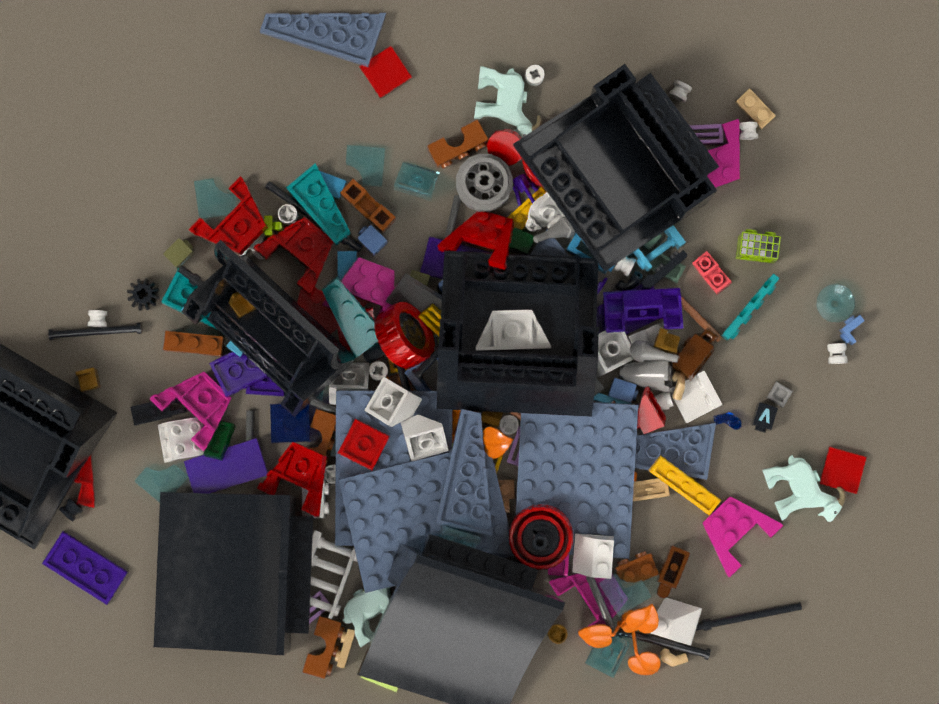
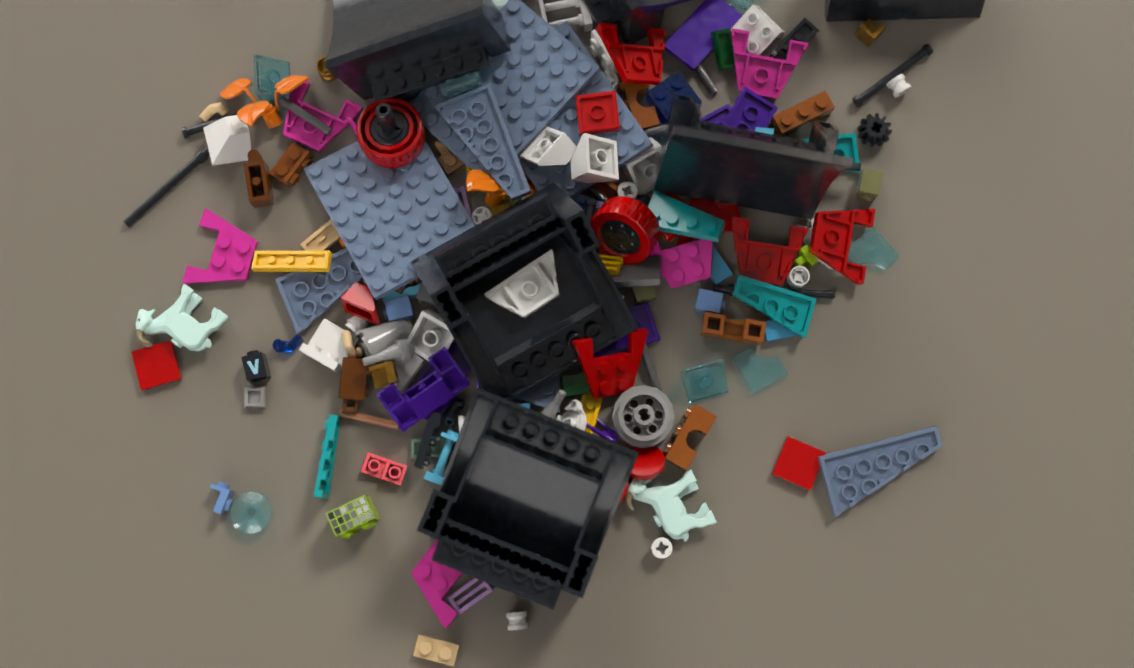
camera: 150 degrees right, 5 degrees down
(593, 555) = (334, 147): white slope -> none
(623, 594) = (289, 134): clear light blue tile -> none
(748, 130) = (429, 624): white wheel -> none
(839, 348) = (222, 466): white wheel -> none

